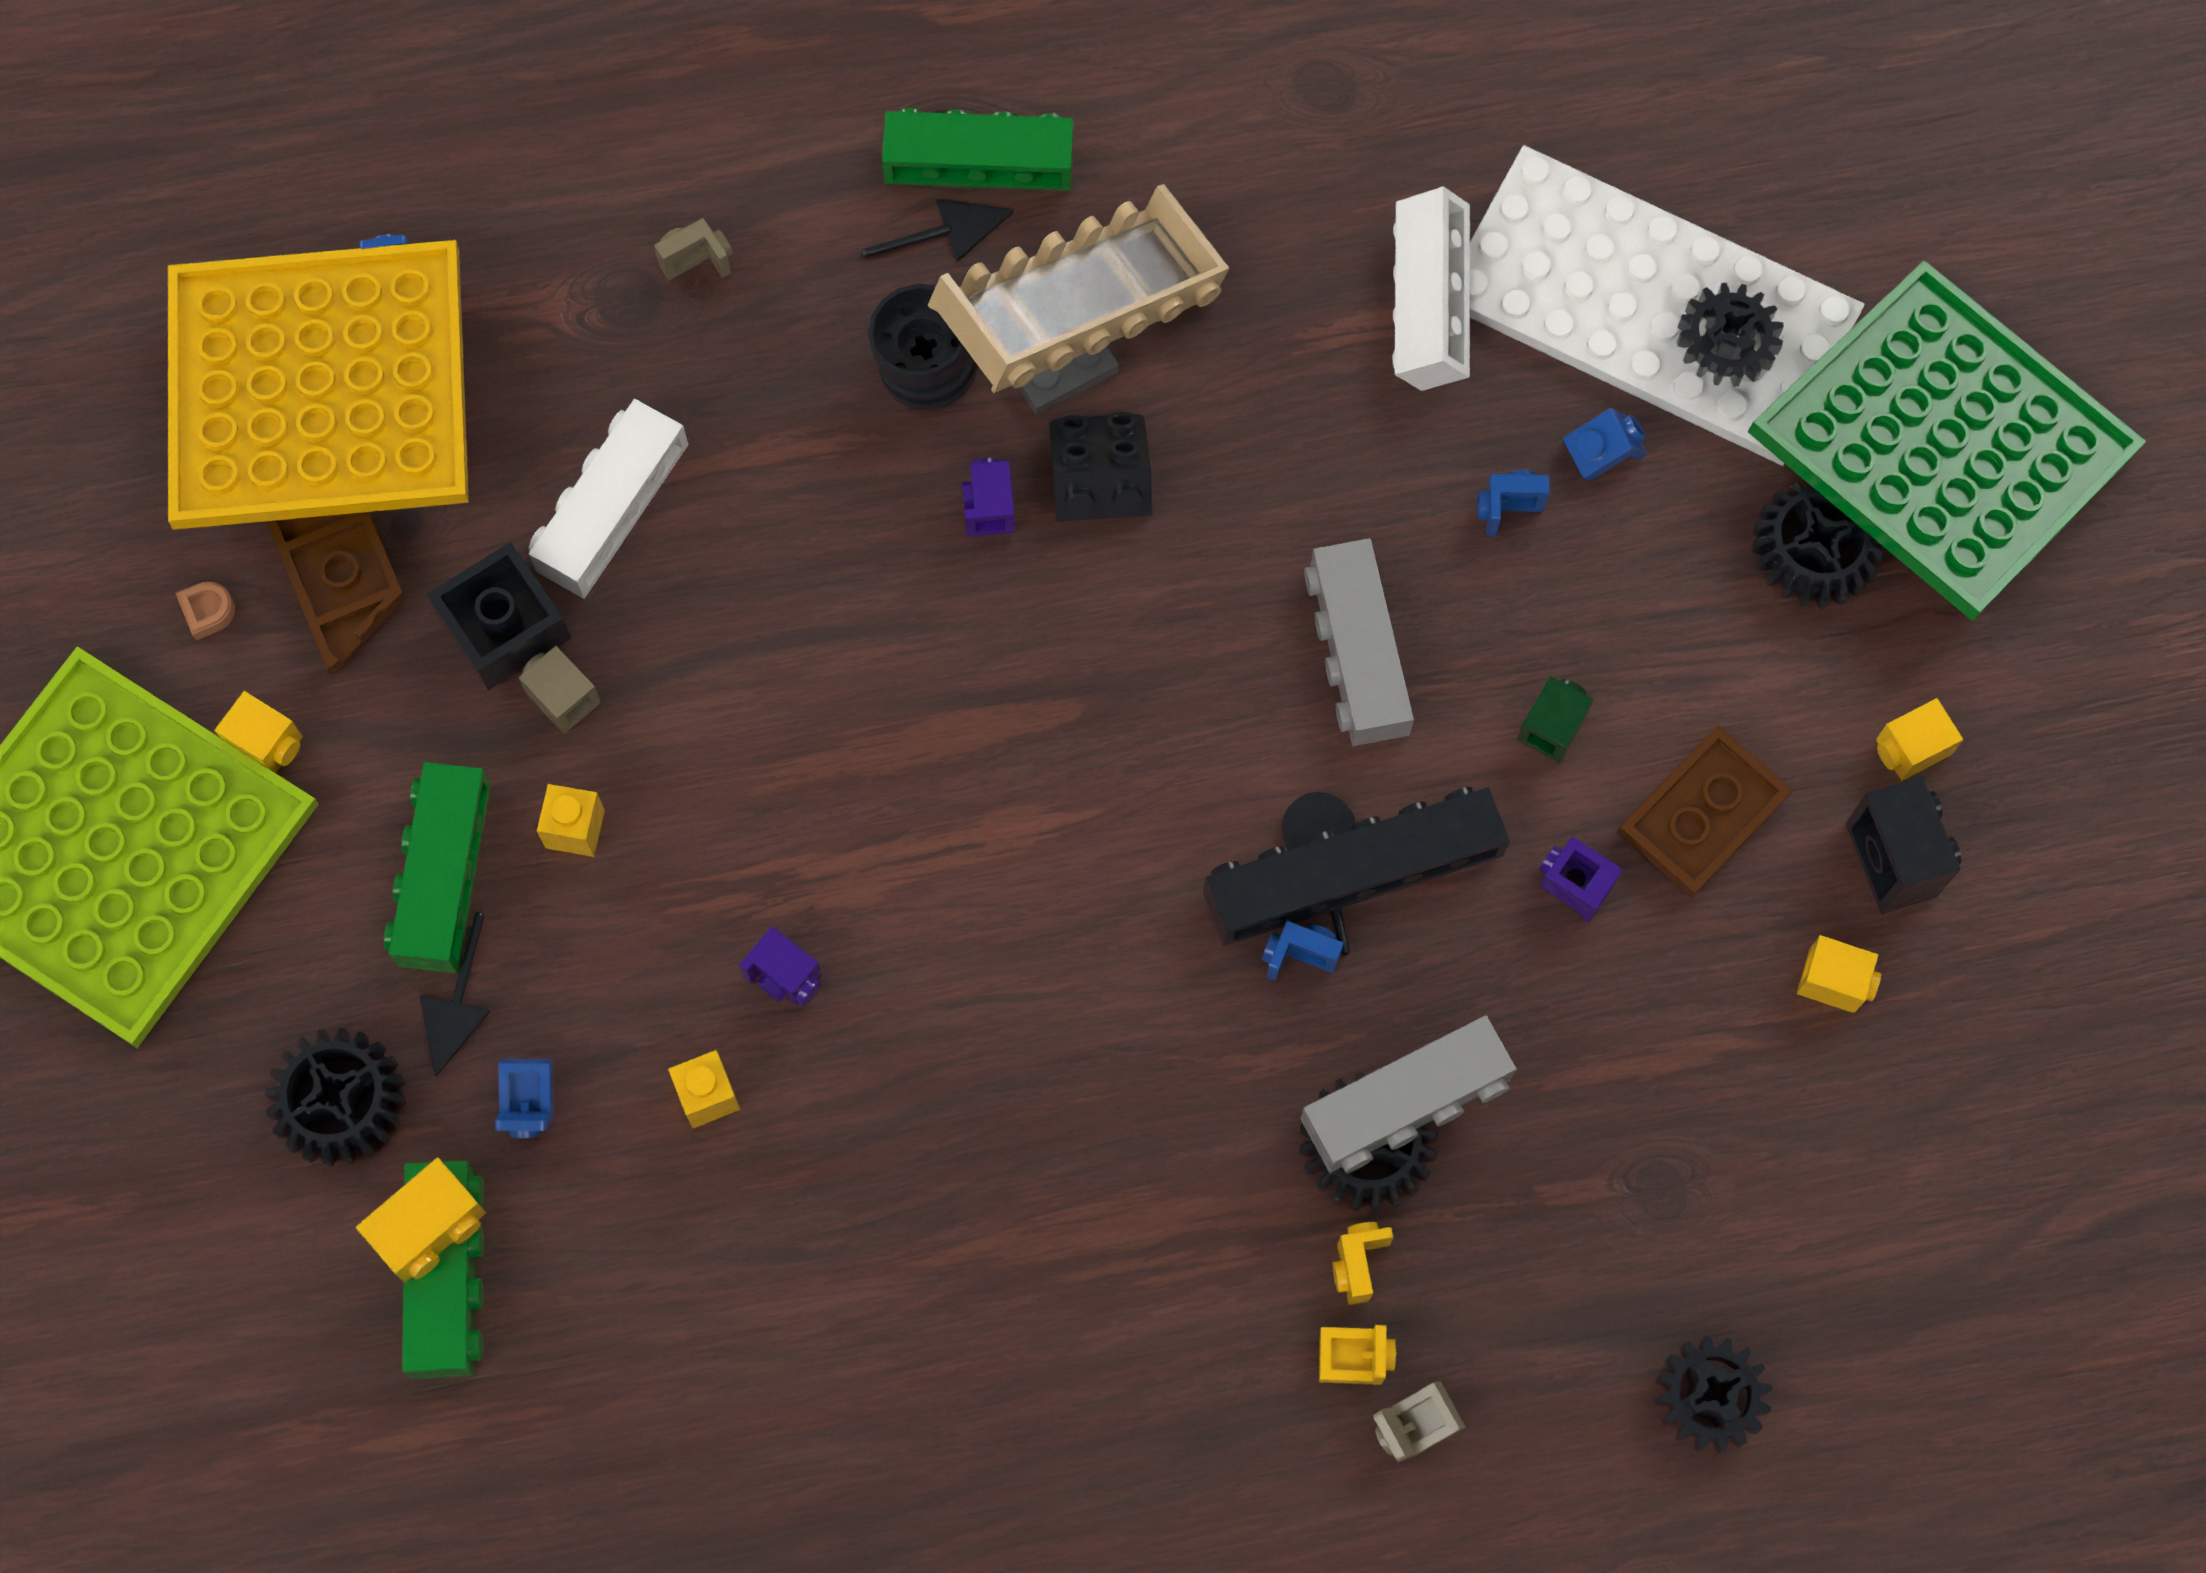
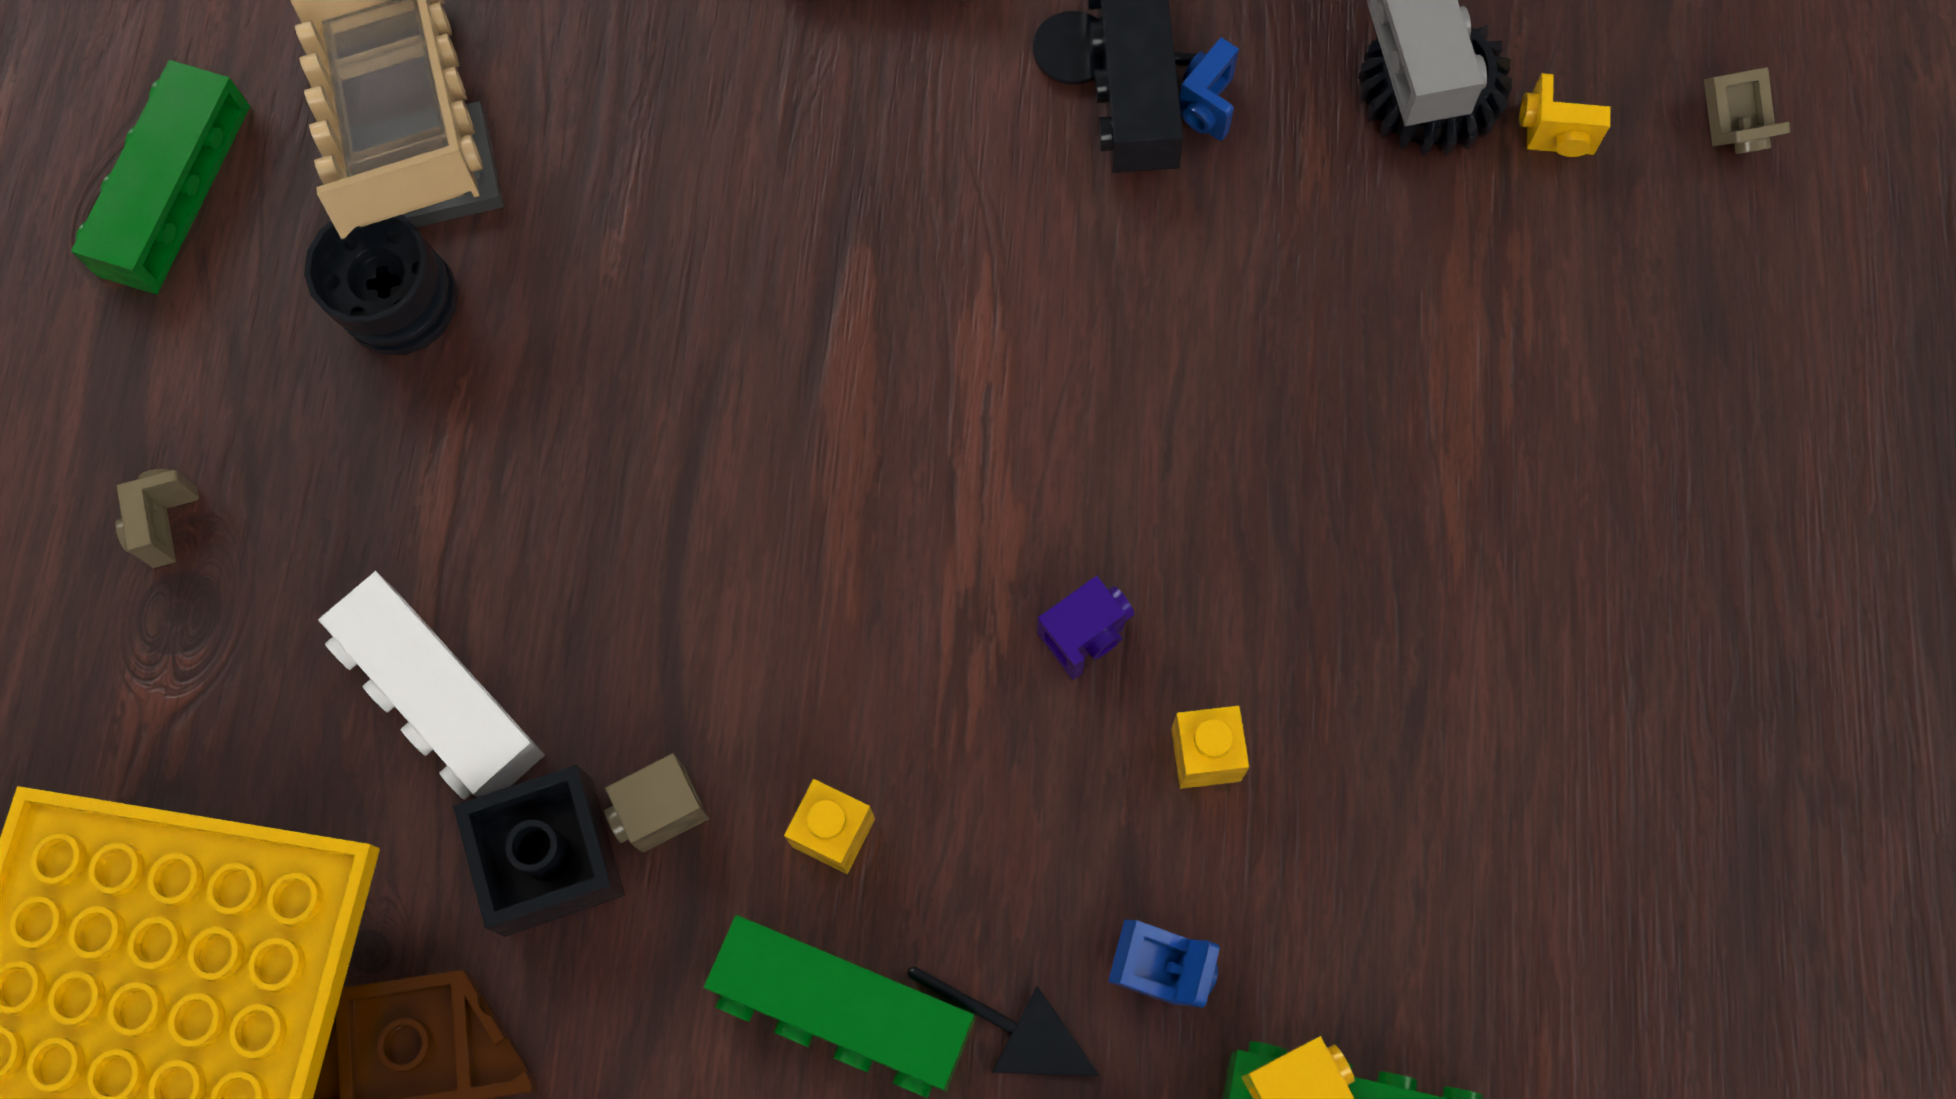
camera: 70 degrees left, 0 degrees up
(962, 222) = (243, 222): black piece -> none
(988, 498) = (588, 266): dark purple brick -> none
(1100, 467) = (594, 141): black bracket -> none
(1355, 1355) = (1662, 147): yellow bracket -> none

